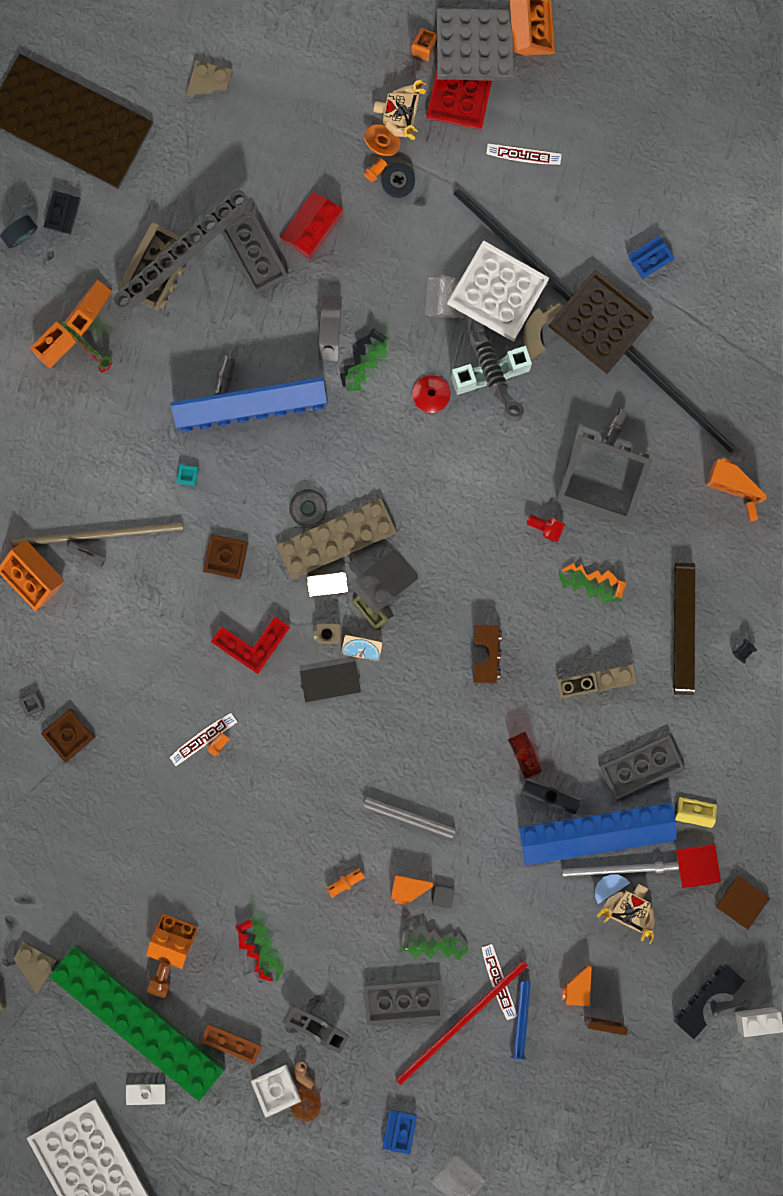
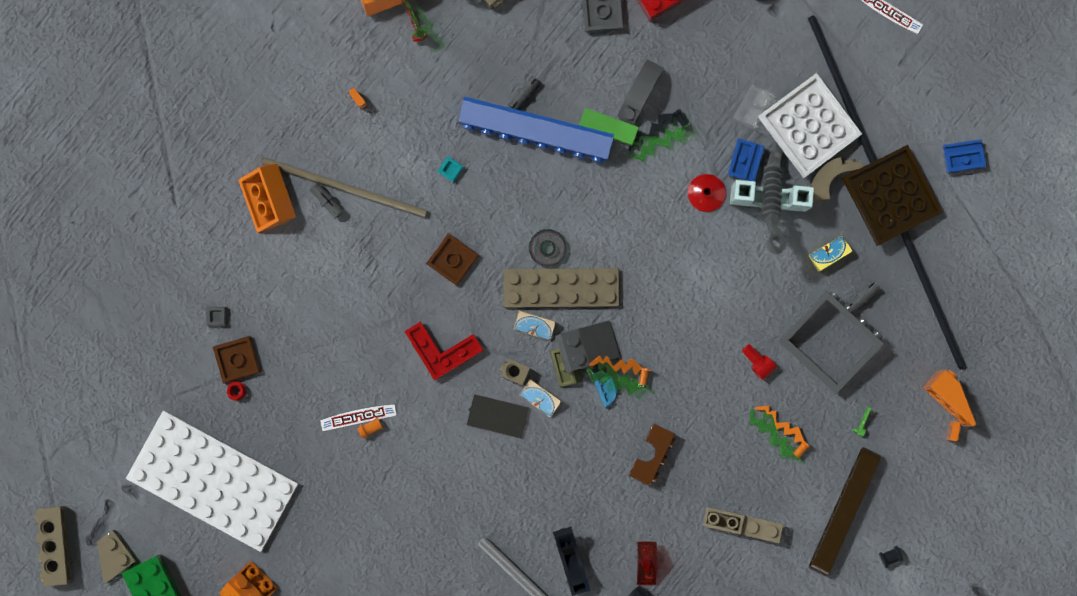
camera: 20 degrees right, 0 degrees up
(73, 447) = (357, 98): none -> orange tile
(74, 762) = (232, 386): none -> red plate
(94, 856) = (212, 481): none -> white plate
(328, 370) = (622, 131): none -> bright green tile
(416, 594) = (612, 373): none -> piece
(417, 611) = (606, 391): none -> dark azure tile
(453, 348) = (745, 160): none -> blue plate
(455, 783) = (571, 561): none -> black arch
(568, 399) = (830, 253): none -> slope
(667, 549) = (861, 431): none -> bright green piece

